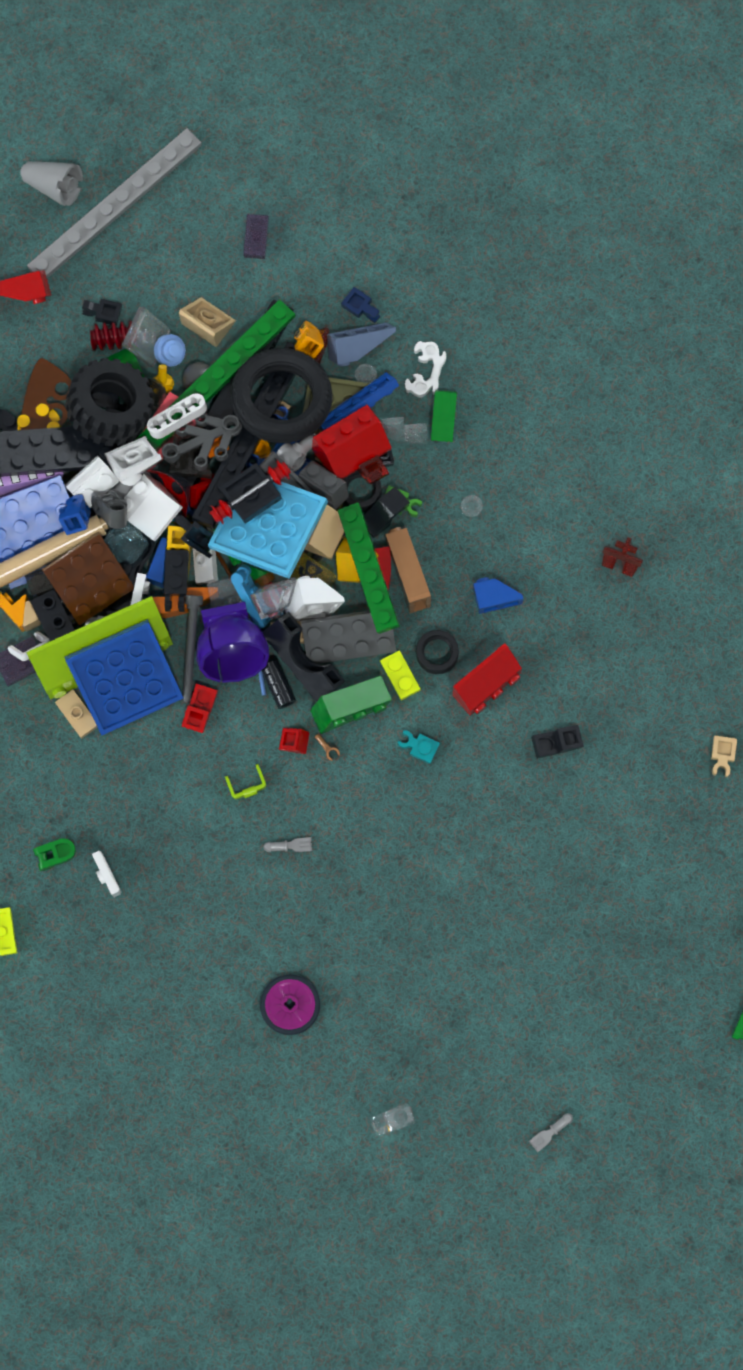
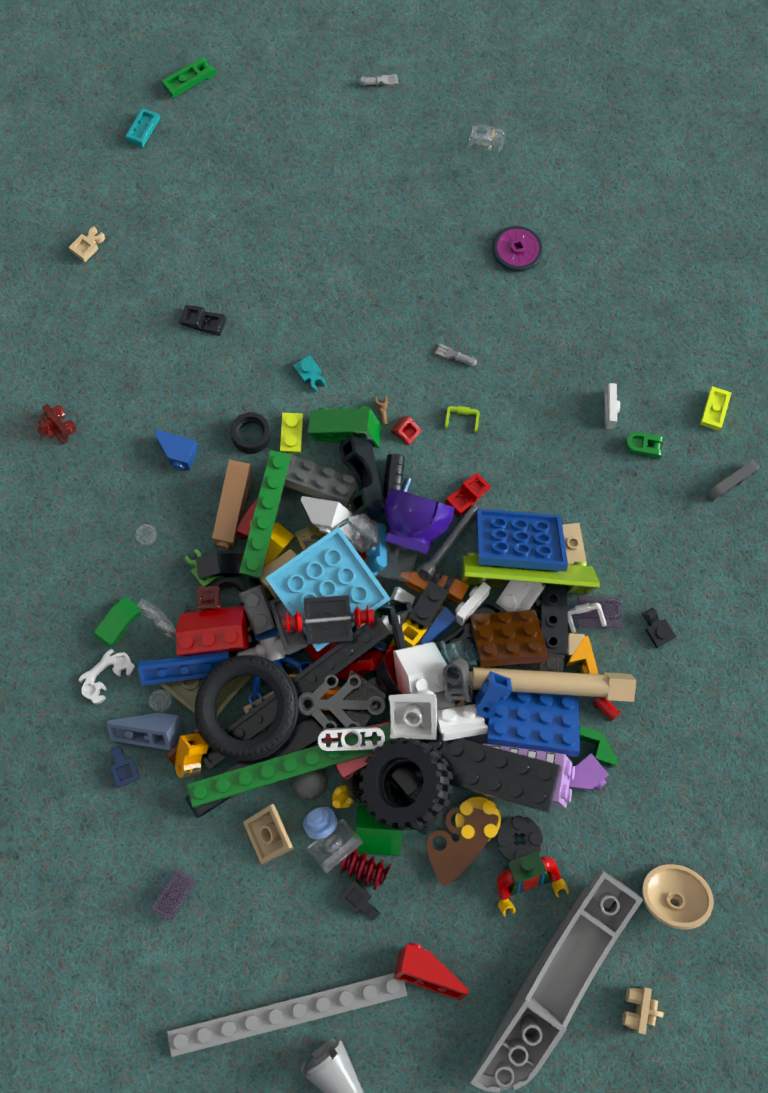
camera: 160 degrees left, 5 degrees down
(487, 680) = (226, 387): red slope -> none

